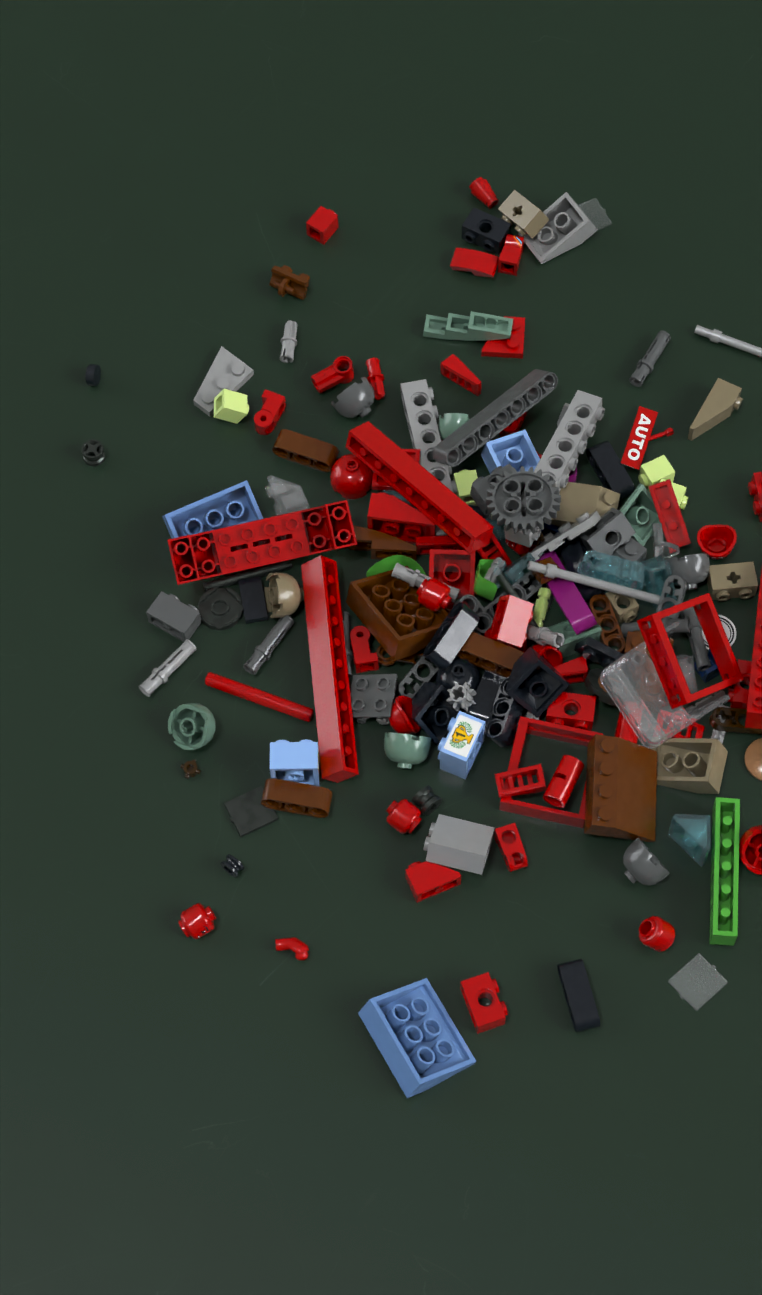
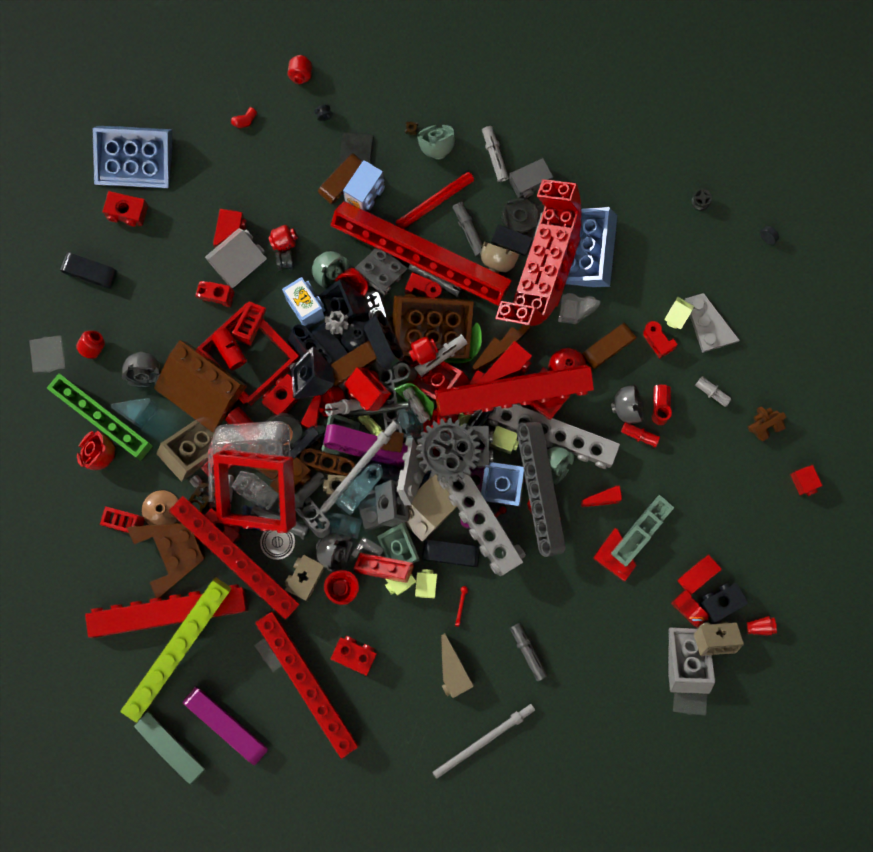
camera: 120 degrees right, 15 degrees up
(639, 437) = (464, 594): red sticker -> none

